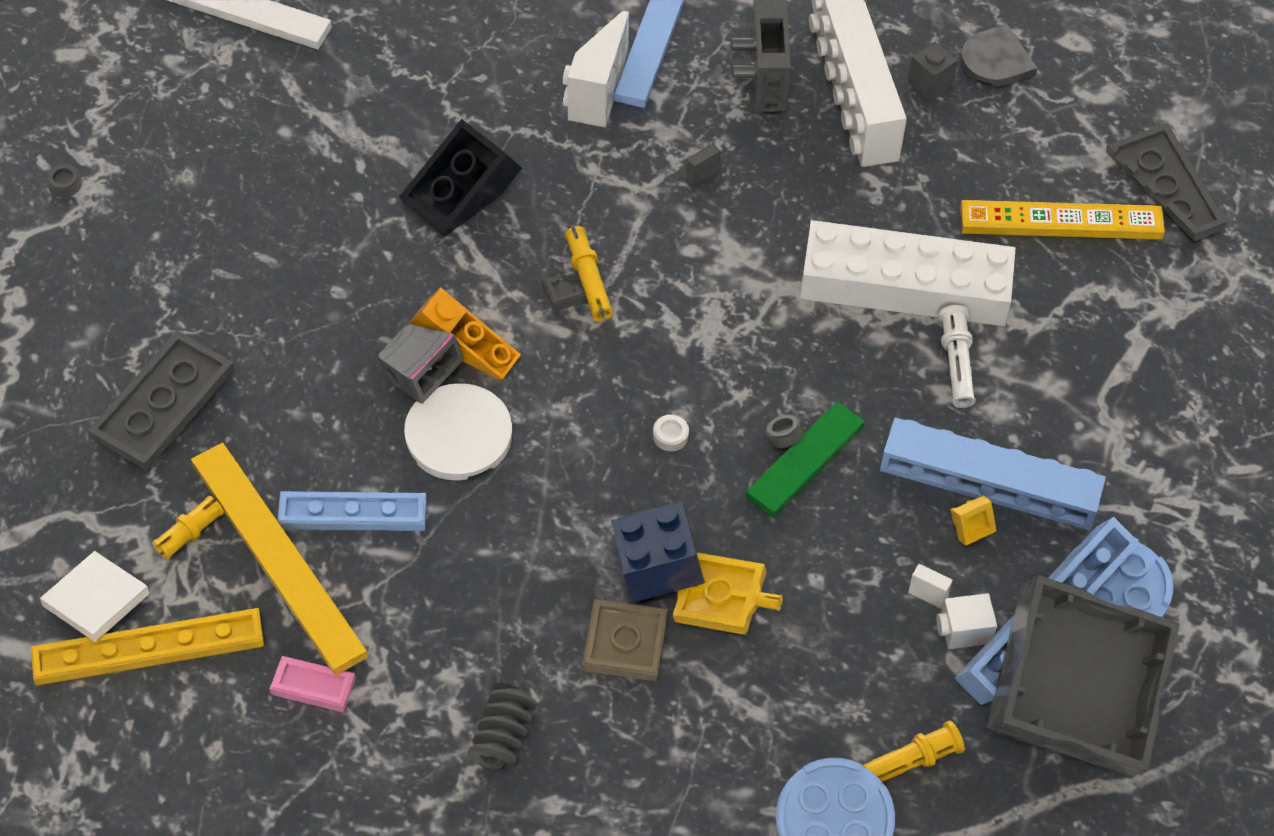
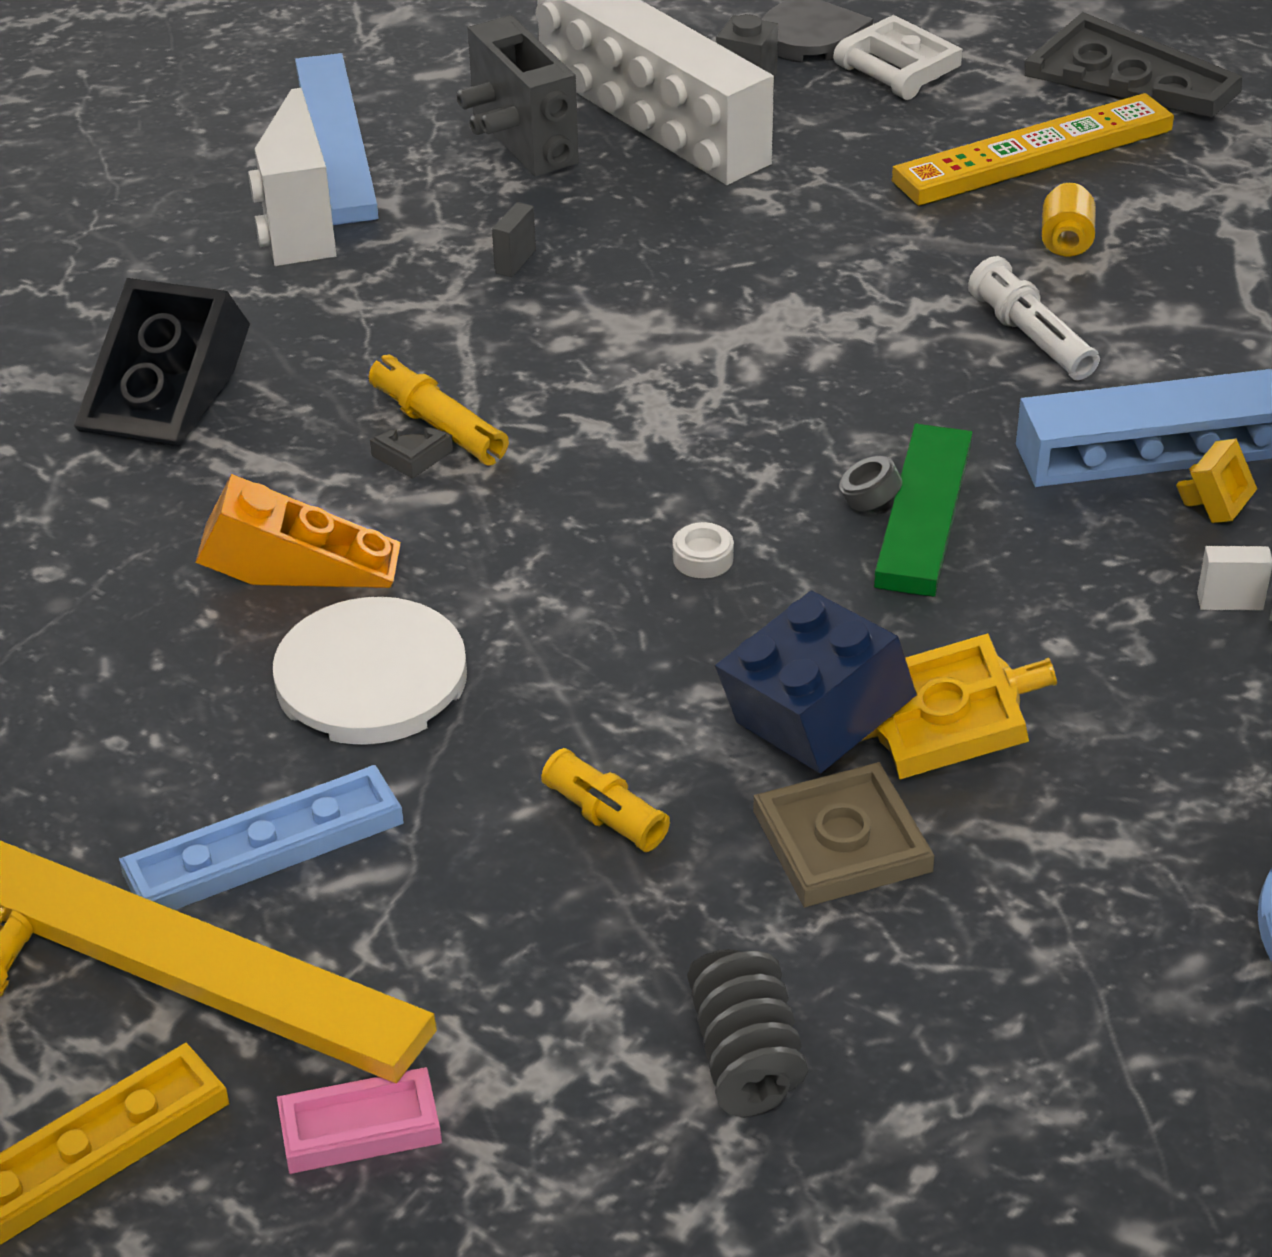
camera: 25 degrees left, 15 degrees down
(418, 359) = (245, 593): dark grey torso -> none
(522, 566) = (636, 818): none -> yellow pin
(907, 272) = (886, 253): white brick -> none
(1033, 289) = (1068, 220): none -> yellow brick
(1040, 102) = (903, 44): none -> white plate

